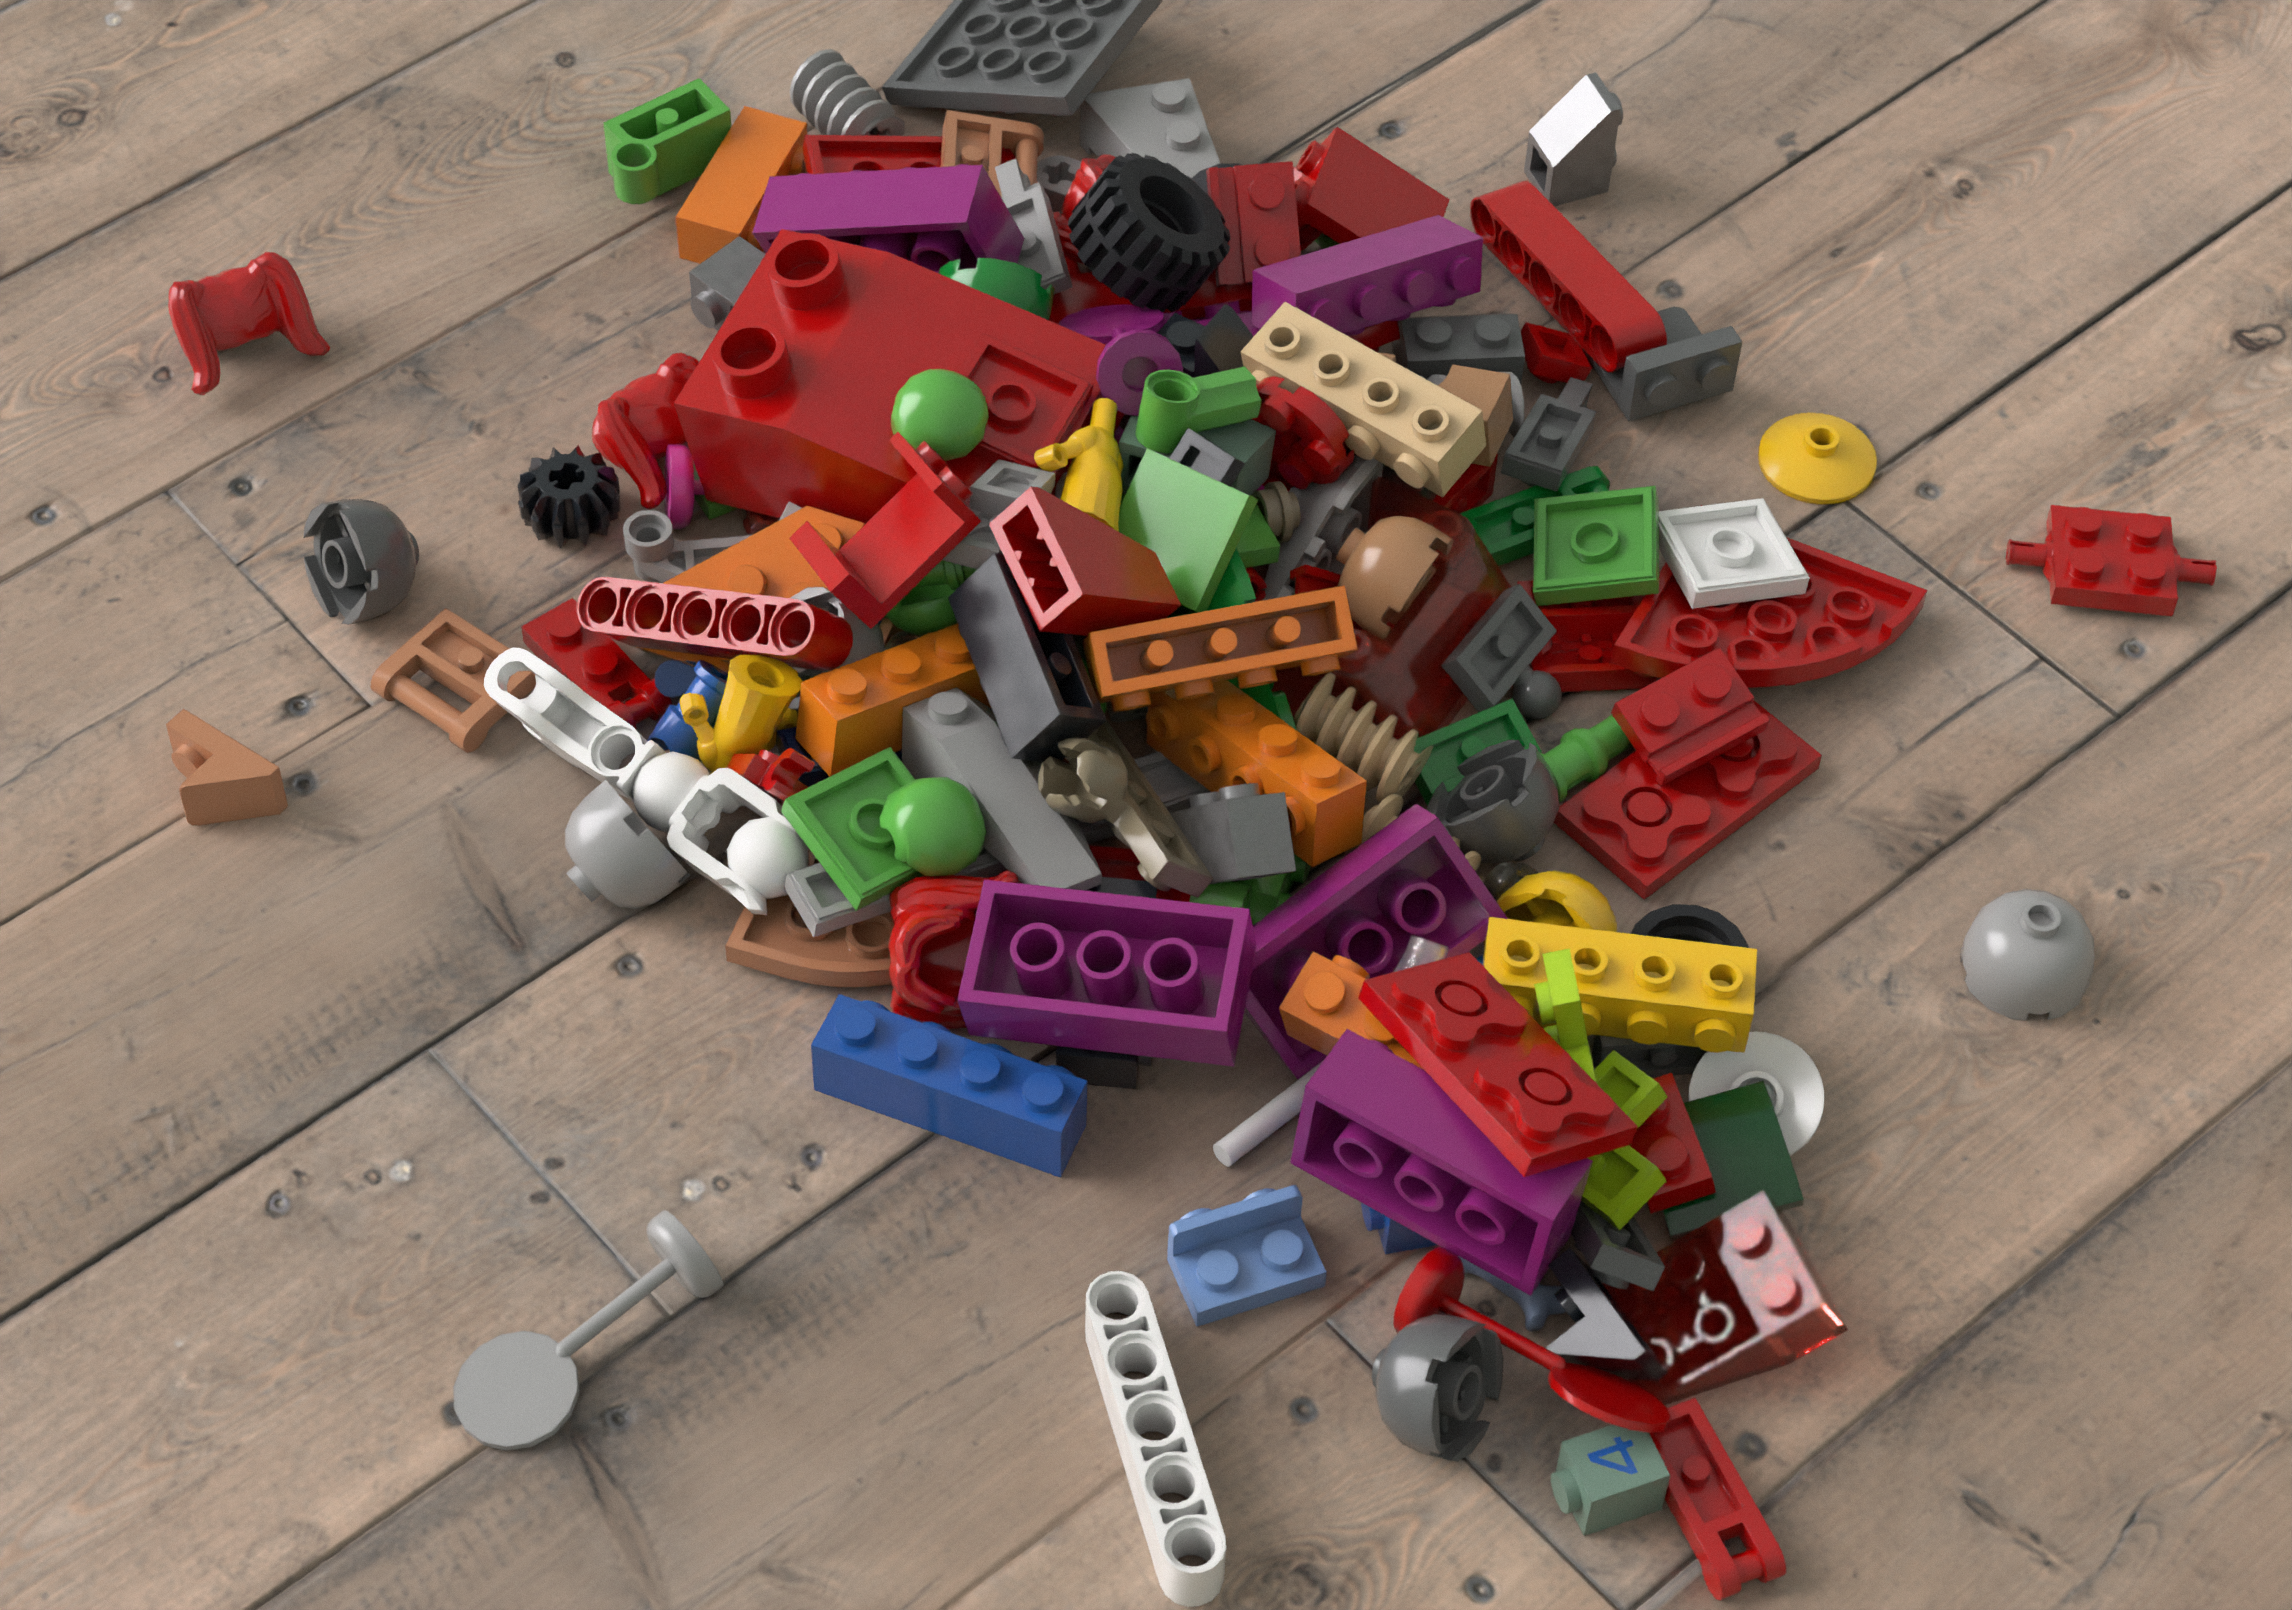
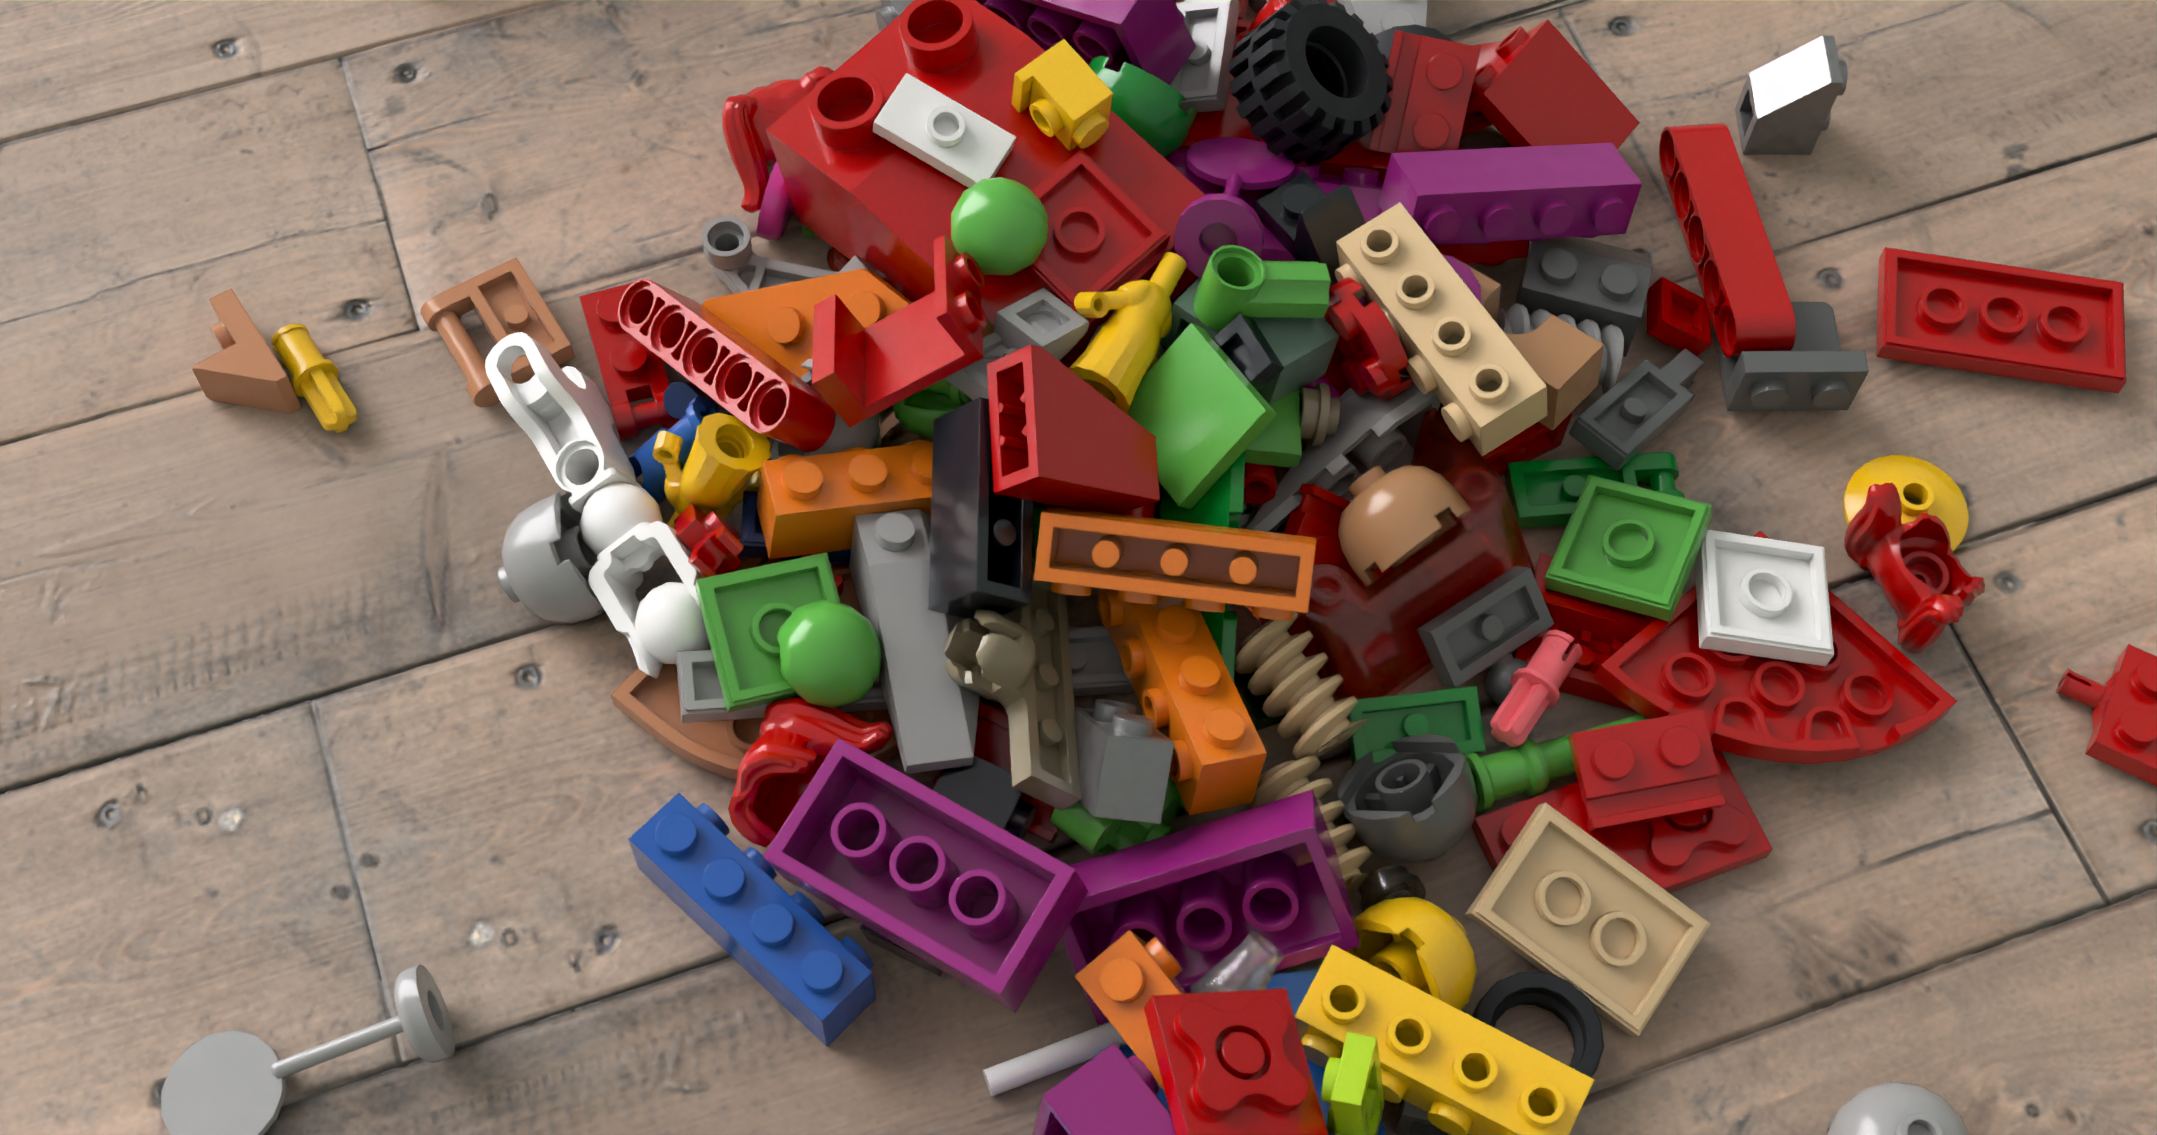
camera: 20 degrees right, 10 degrees up
(300, 772) = (314, 377): none -> yellow axle
(360, 559) = (463, 184): dark grey cylinder -> none
(569, 496) = (679, 177): black gear -> none
(851, 352) = (943, 132): none -> white plate
(951, 290) = (1063, 96): none -> yellow brick
(1564, 683) = (1535, 688): none -> coral axle
(1689, 849) = (1588, 918): none -> tan tile
(1833, 278) = (2001, 320): none -> red piece
(1839, 493) = (1911, 566): none -> red hair

